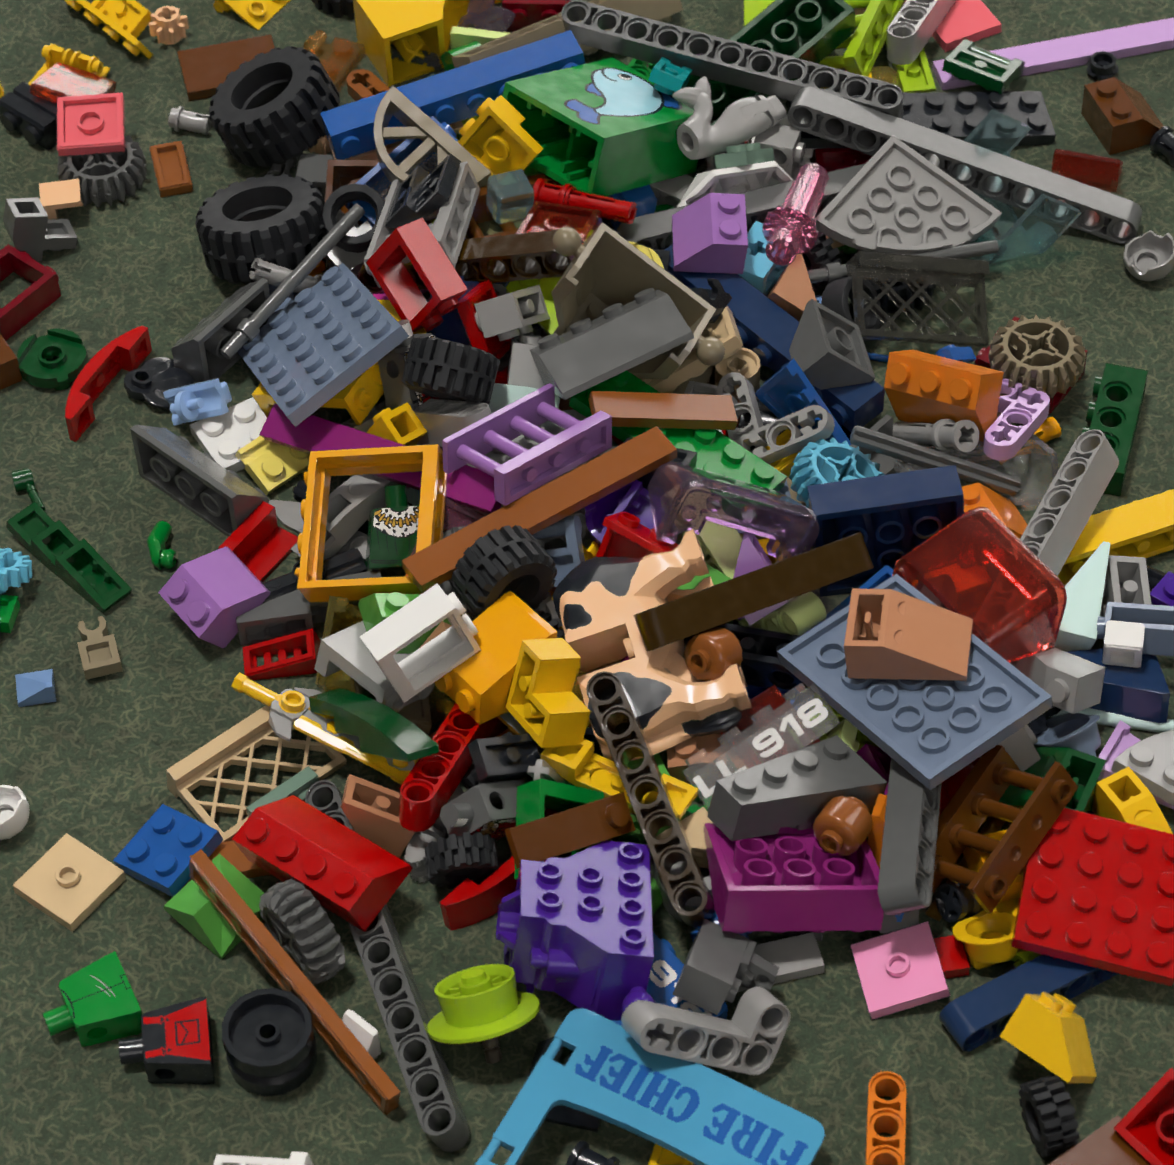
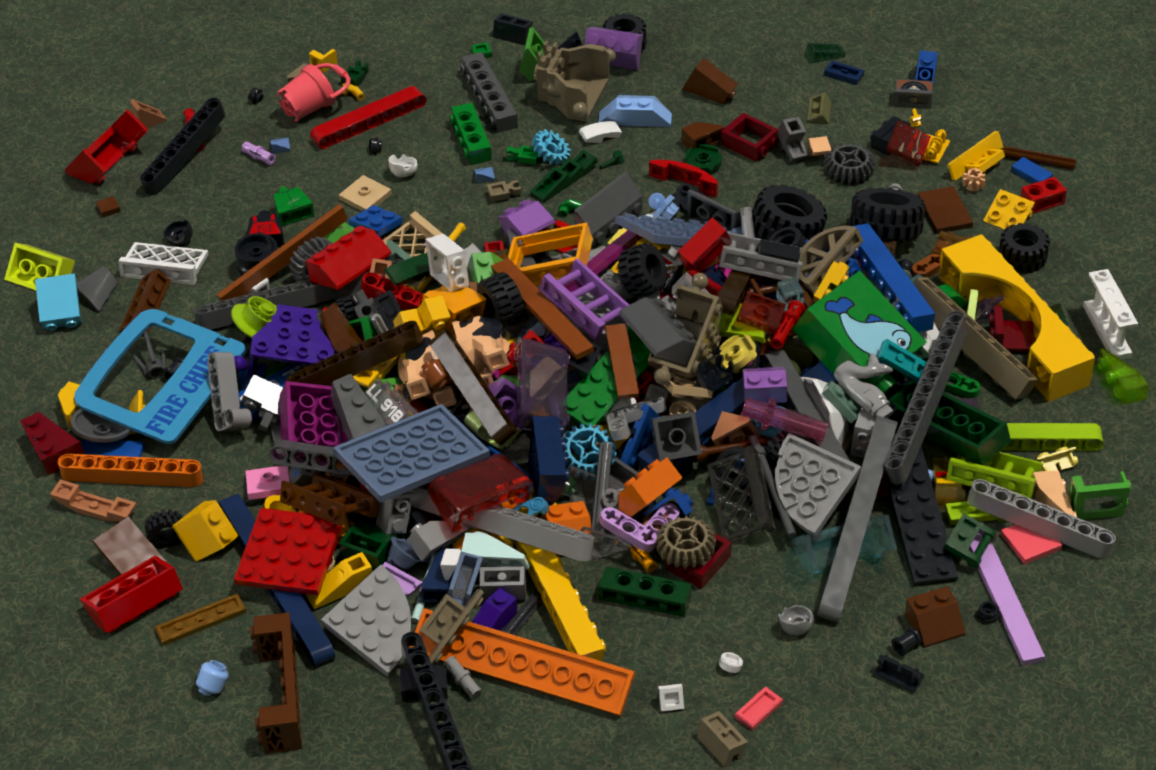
camera: 90 degrees right, 5 degrees down
(90, 124) = (870, 147): coral tile -> none
(171, 169) = (846, 193): dark orange tile -> none
(249, 328) = (706, 216): dark grey bar -> none
(843, 825) = (332, 434): dark orange head -> none
(904, 638) = (425, 436): nougat slope -> none
(1088, 169) = (883, 597): clear red panel -> none

